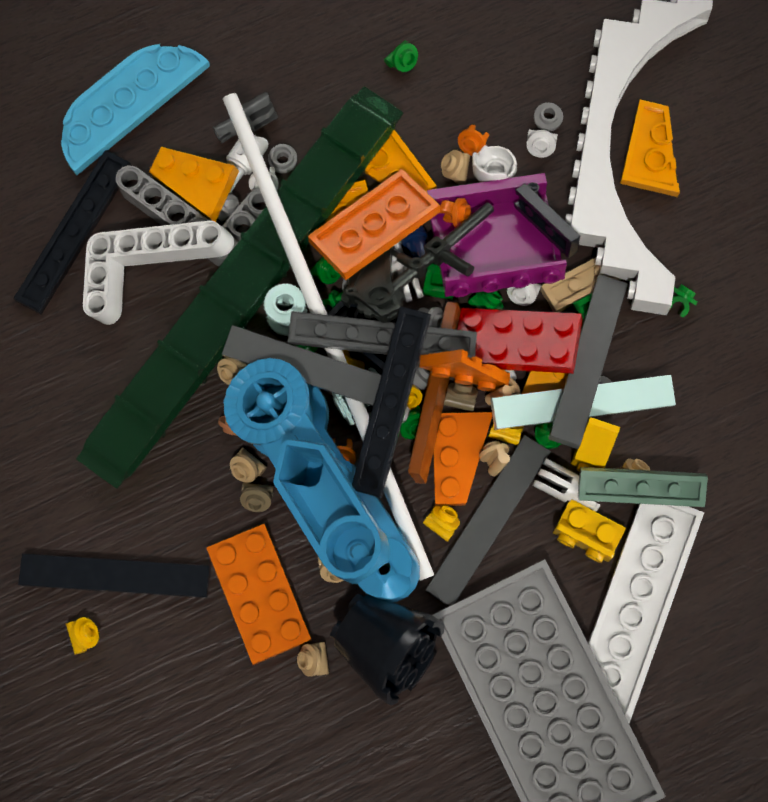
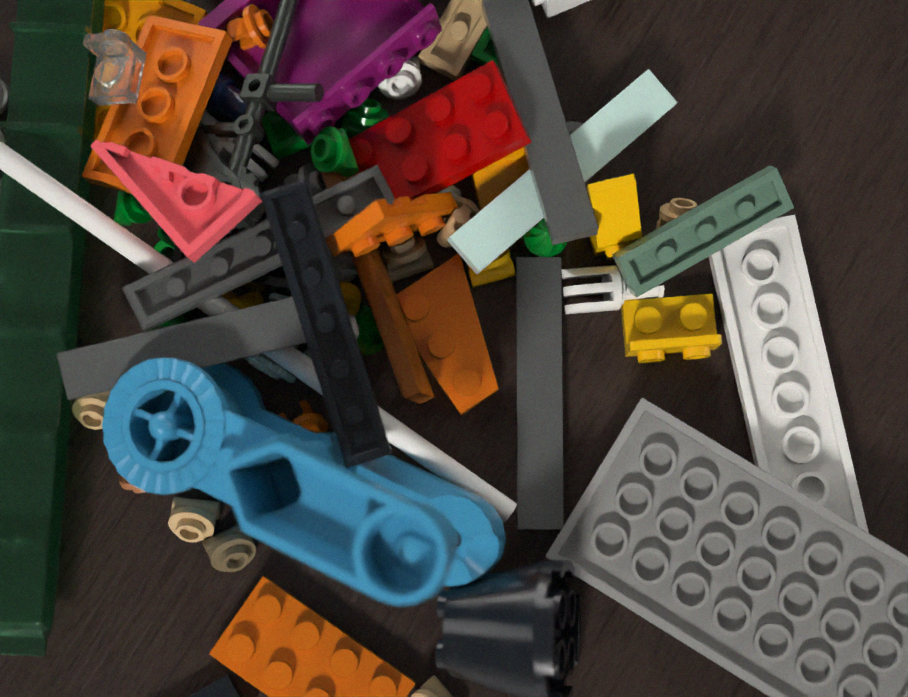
camera: 30 degrees left, 5 degrees up
(279, 298) = (97, 280): light aqua hose -> none
(355, 288) = (186, 205): none -> coral wing
(365, 188) = (116, 69): none -> clear bracket
(442, 521) = (484, 429): yellow plate -> none
(457, 309) = (333, 152): none -> green plate
(495, 456) = (498, 307): tan plate -> none

